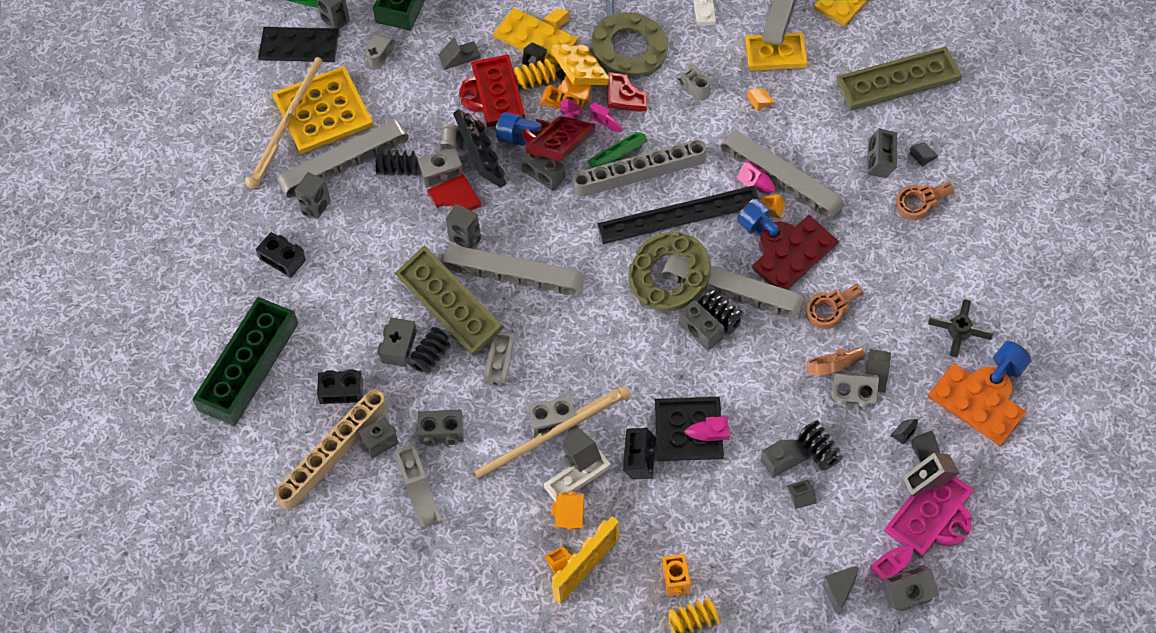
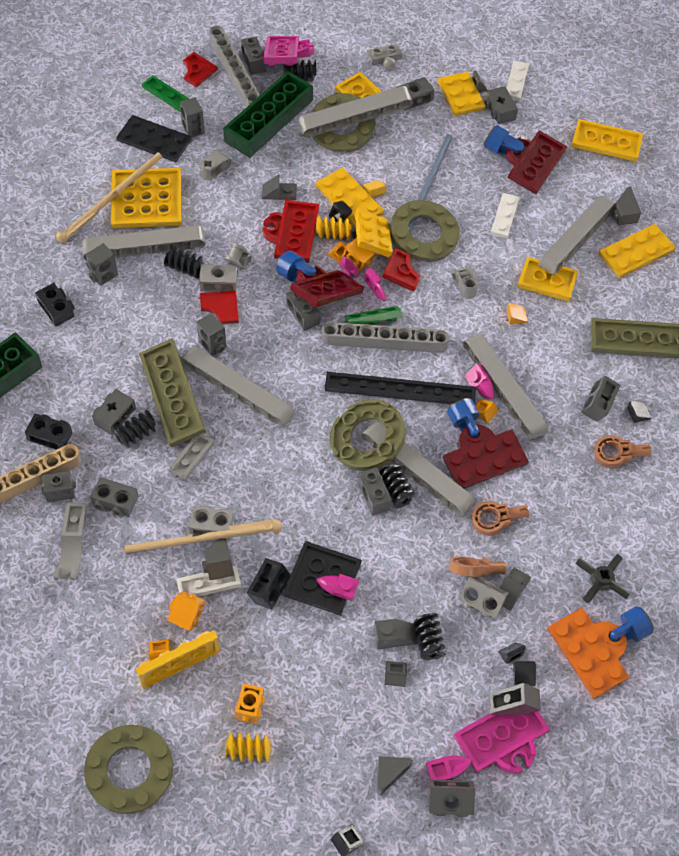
camera: 15 degrees right, 0 degrees up
(479, 148) = (257, 273): black plate -> none

